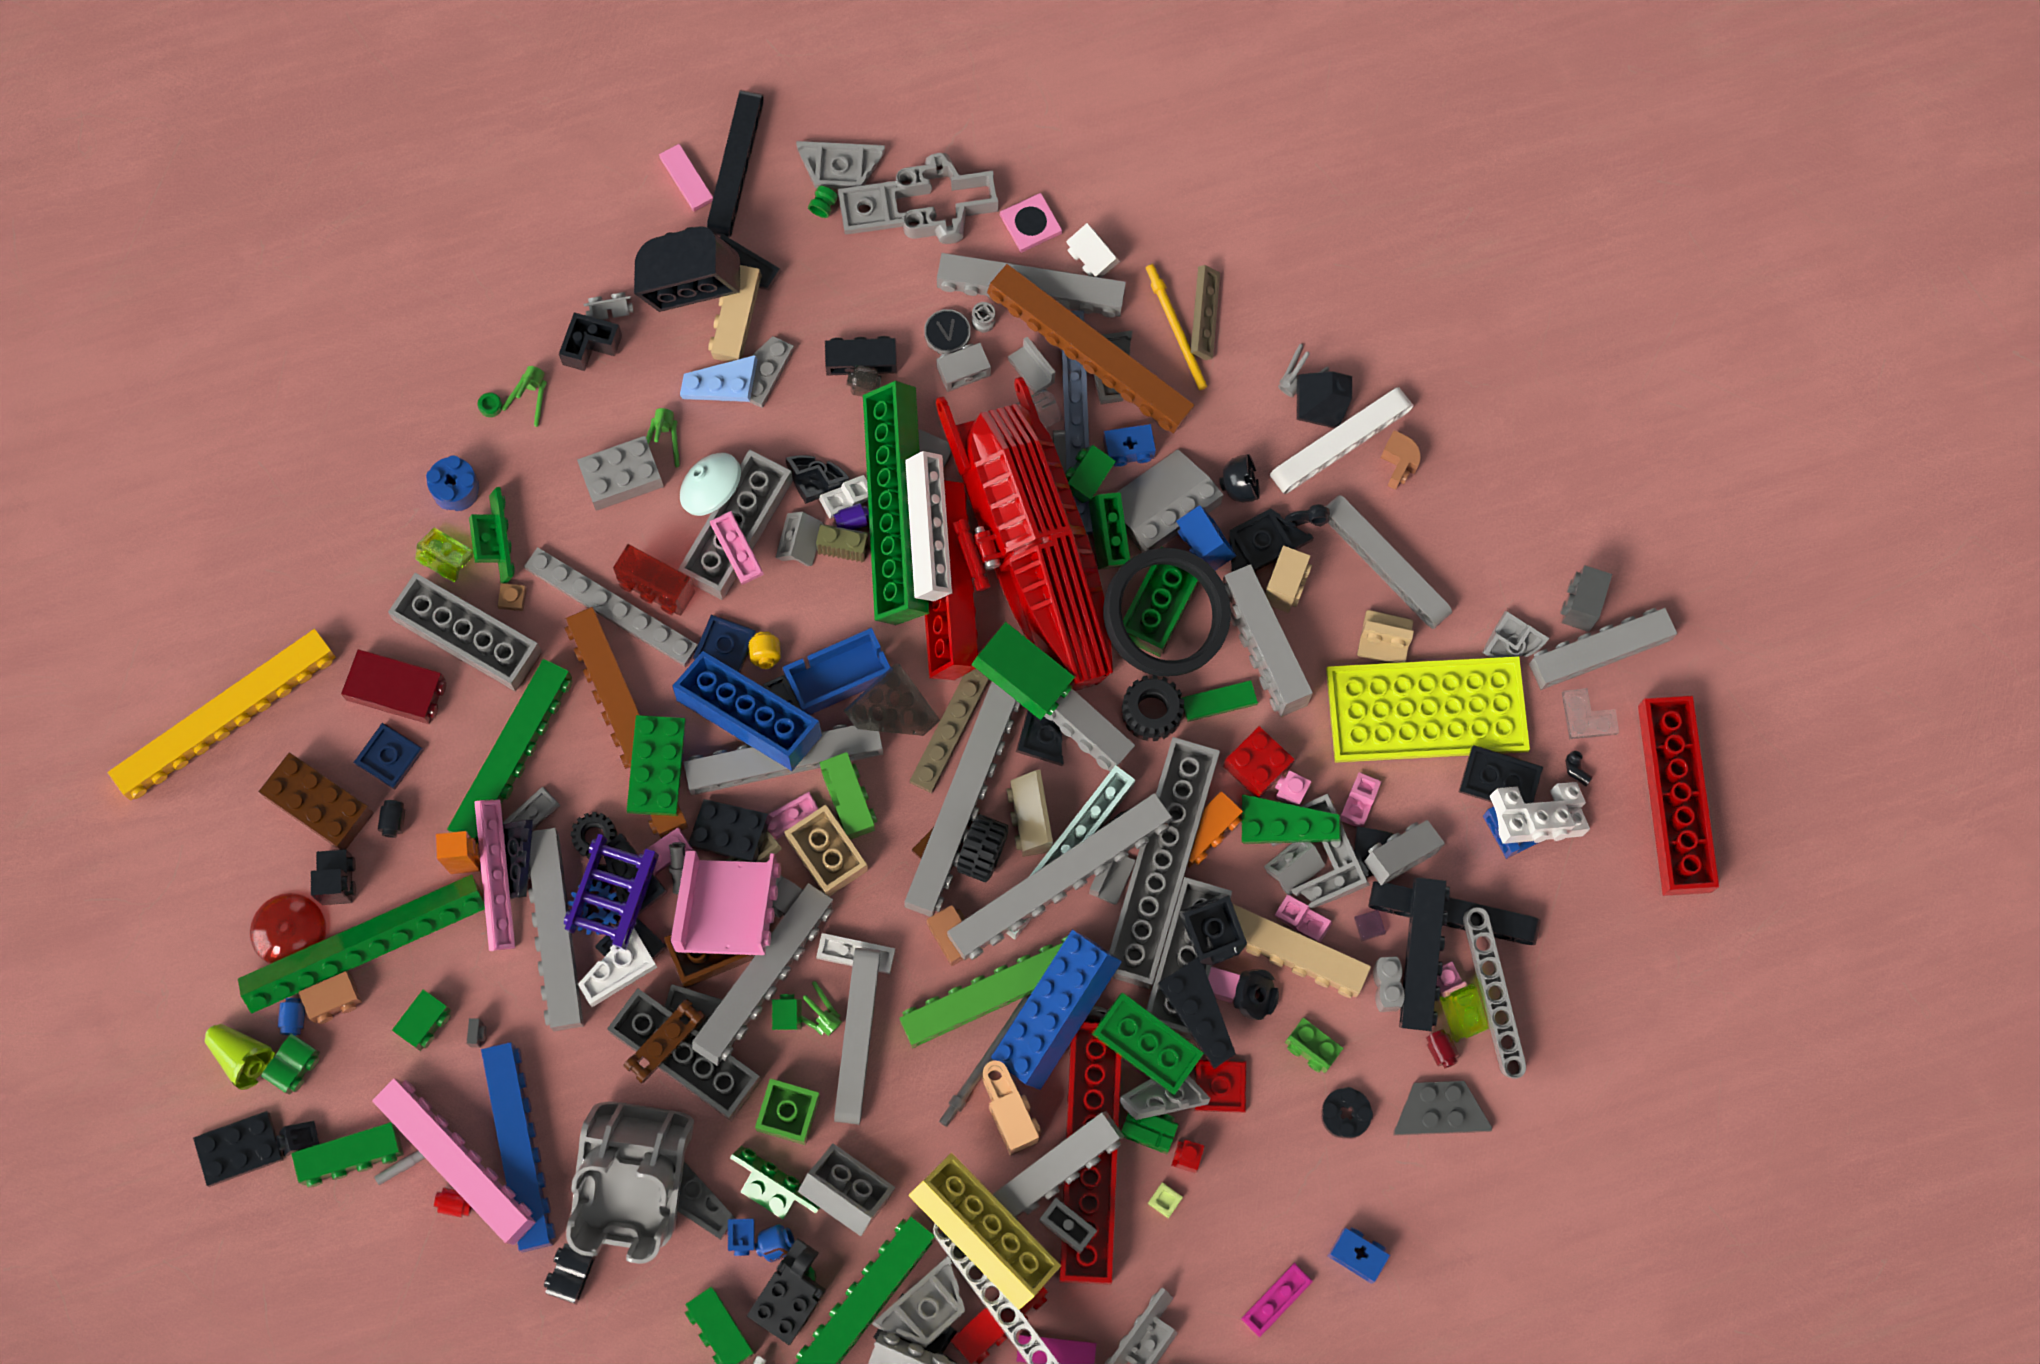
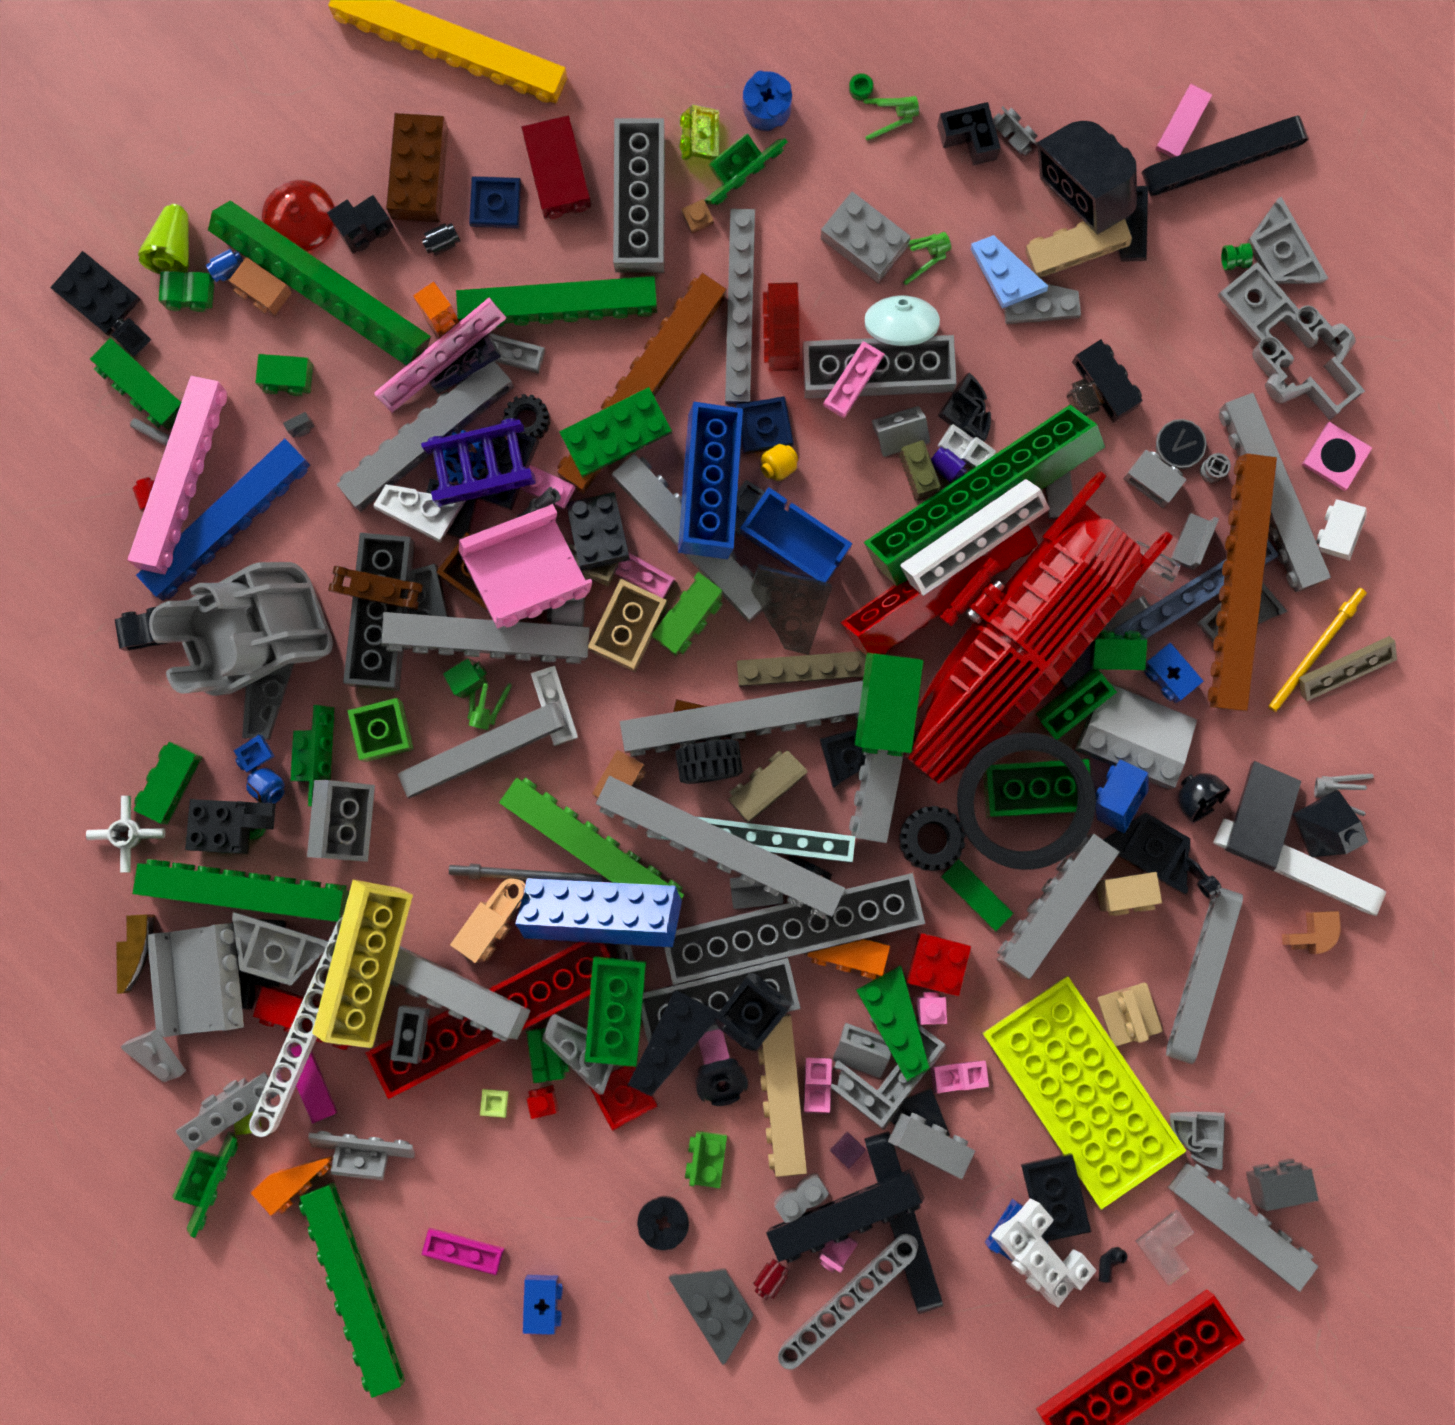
camera: 65 degrees right, 10 degrees up
(1285, 442) = (1263, 816): none -> black tile
(1464, 1012) = (814, 1282): clear neon green plate -> none

